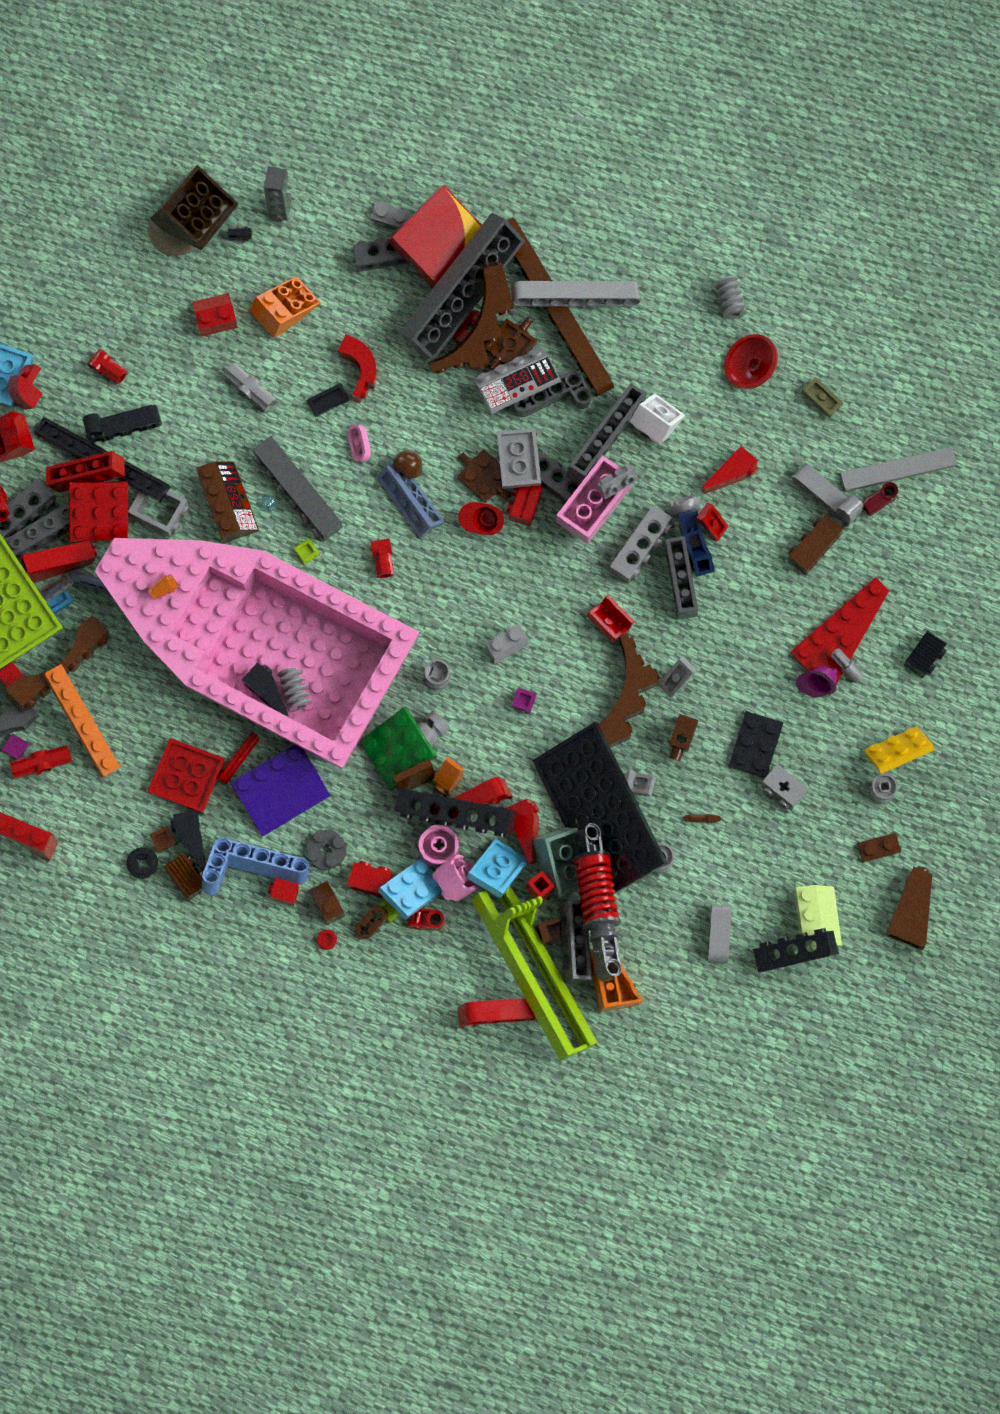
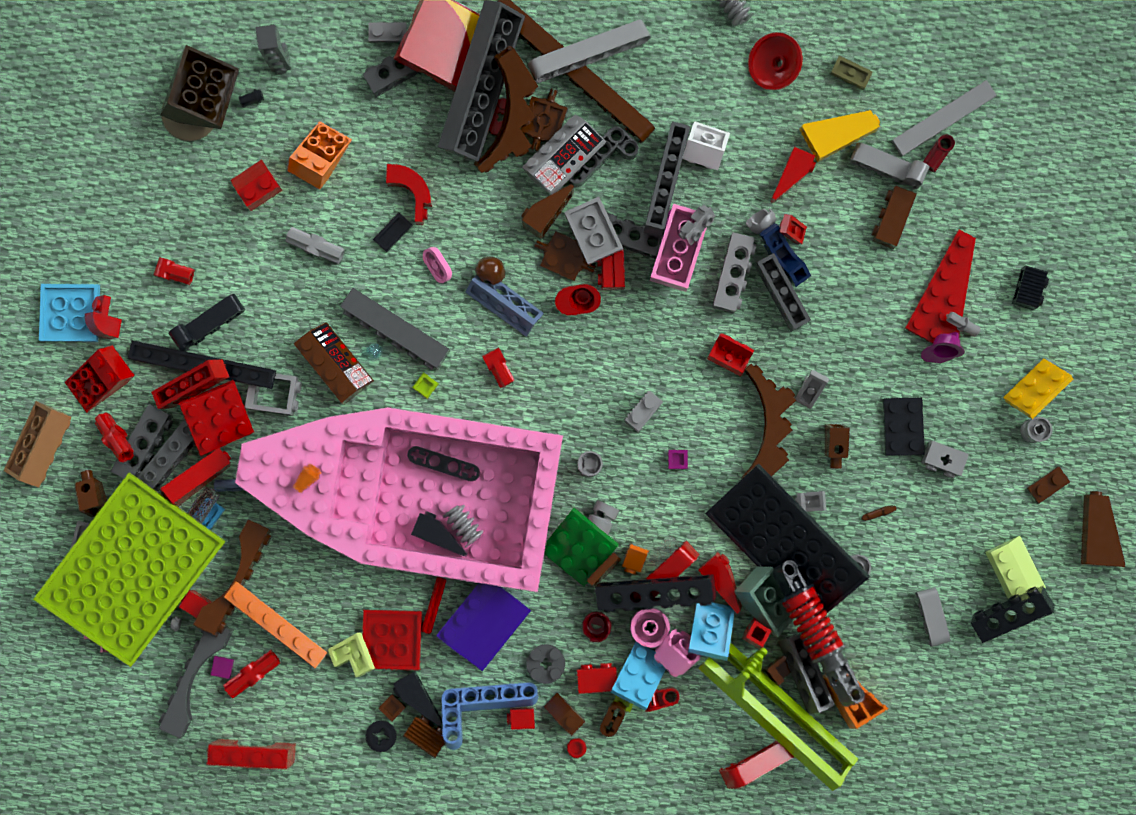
camera: 20 degrees left, 10 degrees up
(146, 772) = (355, 651): none -> yellowish green plate
(297, 627) = (443, 465): none -> black beam
(391, 824) = (599, 619): none -> dark red hair
(481, 426) = (544, 213): none -> reddish brown slope
(788, 448) = (837, 133): none -> yellow slope

